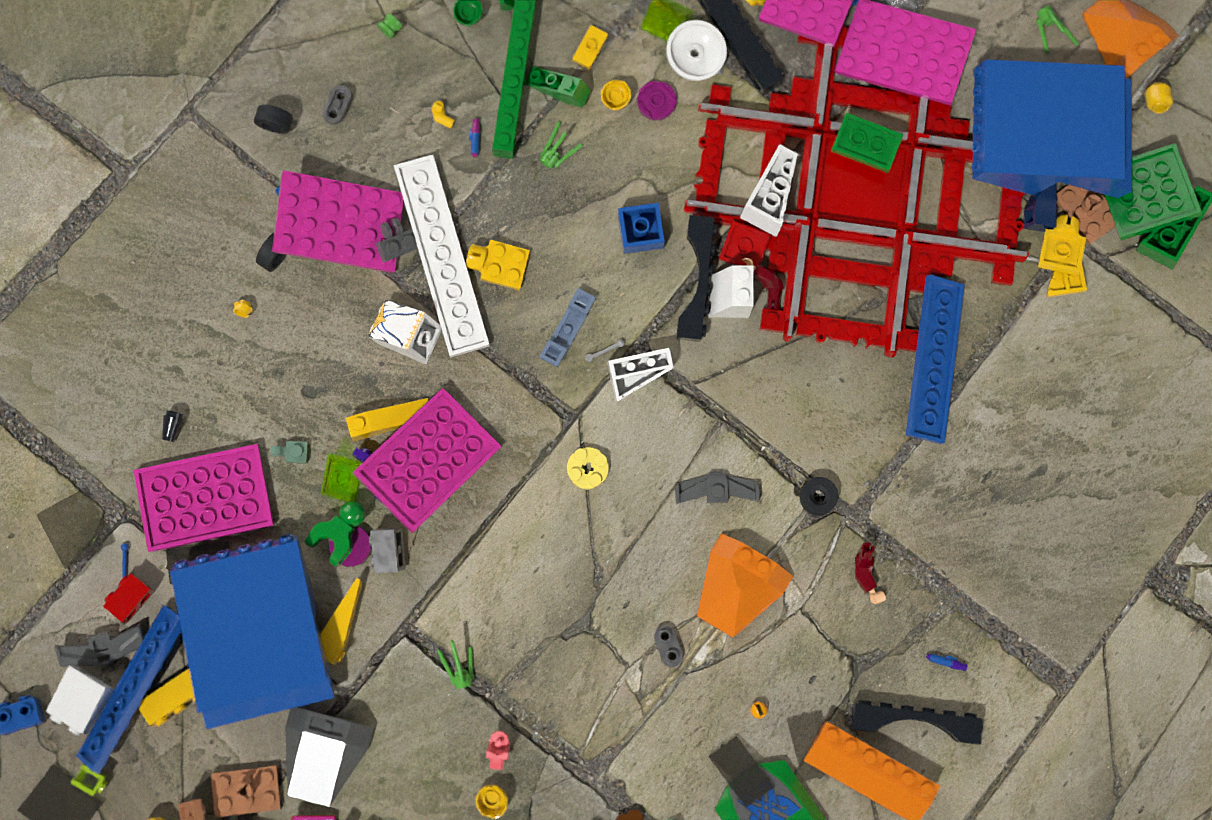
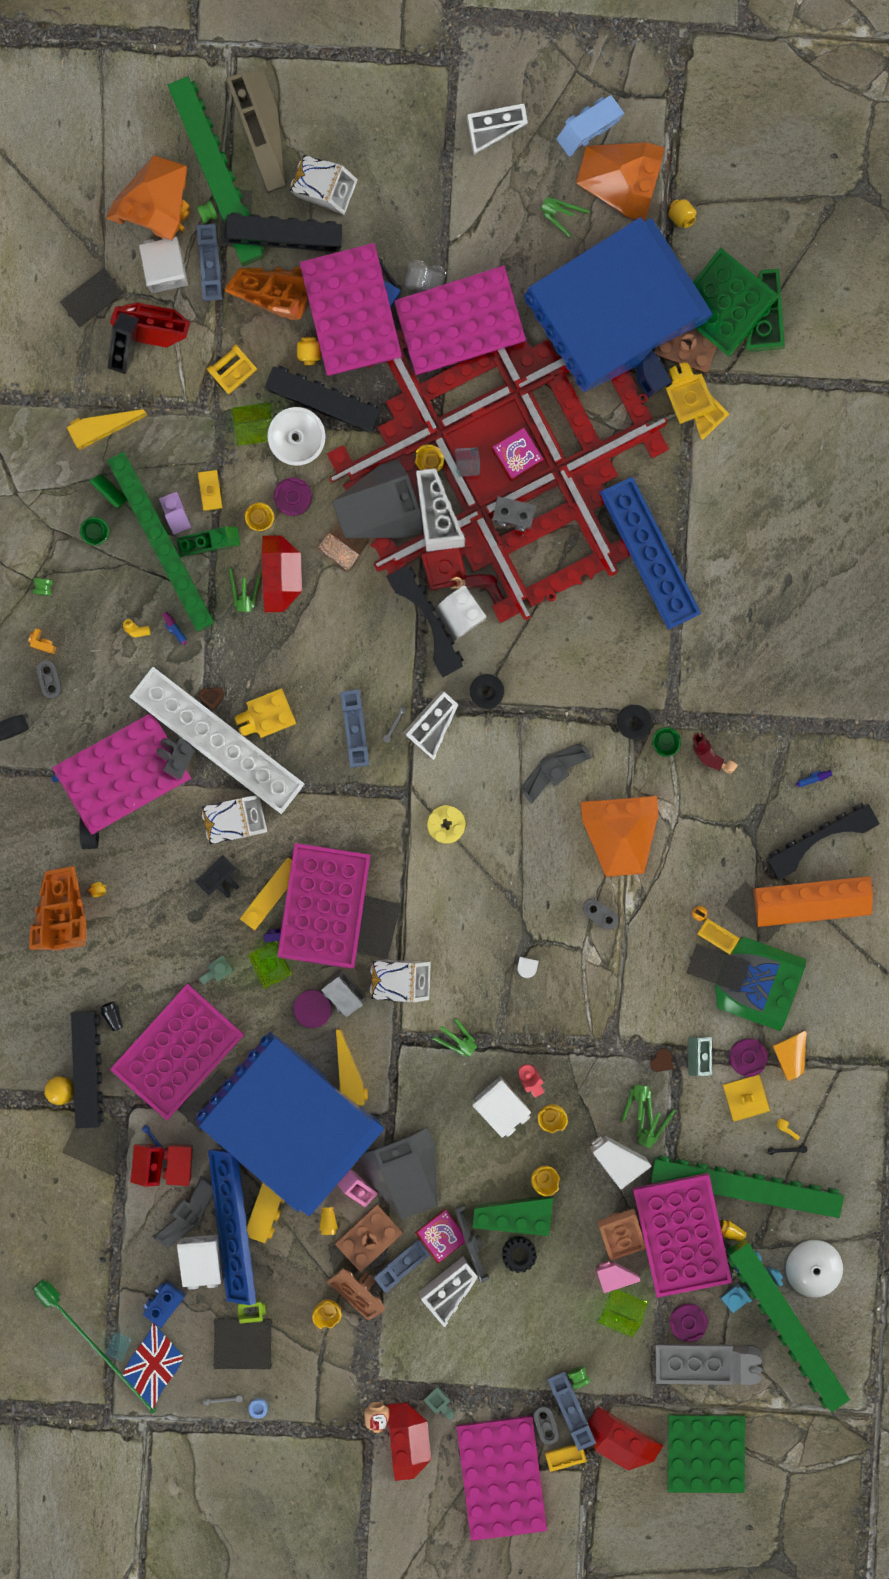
camera: 25 degrees left, 10 degrees up
(76, 458) = (59, 1090): none -> yellow hair
(99, 577) = (146, 1165): none -> red brick
(113, 455) = (86, 1069): none -> black brick
(194, 306) = (60, 915): none -> orange wedge
(220, 749) = (328, 1222): none -> yellow cone
(269, 736) = (357, 1188): none -> bright pink slope
(339, 530) = (297, 1005): green piece -> none
(352, 71) = (44, 645): none -> light orange bracket
(352, 369) = (216, 875): none -> black hinge
(447, 576) = (400, 980): none -> white slope
(453, 757) = (501, 1107): none -> white slope
(460, 514) = (377, 926): none -> clear smoke piece
(463, 216) = (211, 697): none -> reddish brown tile
(546, 45) = (175, 513): none -> lavender slope
(568, 646) = (527, 967): none -> white tile
(598, 155) = (280, 573): none -> red wedge
(640, 228) = (355, 611): blue brick -> none
(663, 171) = (338, 551): none -> clear orange slope
(706, 366) = (486, 680): none -> black tyre
(726, 155) = (380, 505): none -> dark grey wedge
(761, 743) = (718, 936): none -> yellow plate
(799, 142) = (429, 457): none -> yellow hair
(828, 169) = (467, 461): none -> clear light blue panel
(836, 533) = (666, 741): none -> green hair
(838, 238) = (514, 514): none -> flat silver brick
(867, 142) = (482, 419): green plate -> none
(877, 195) = (517, 453): none -> tile

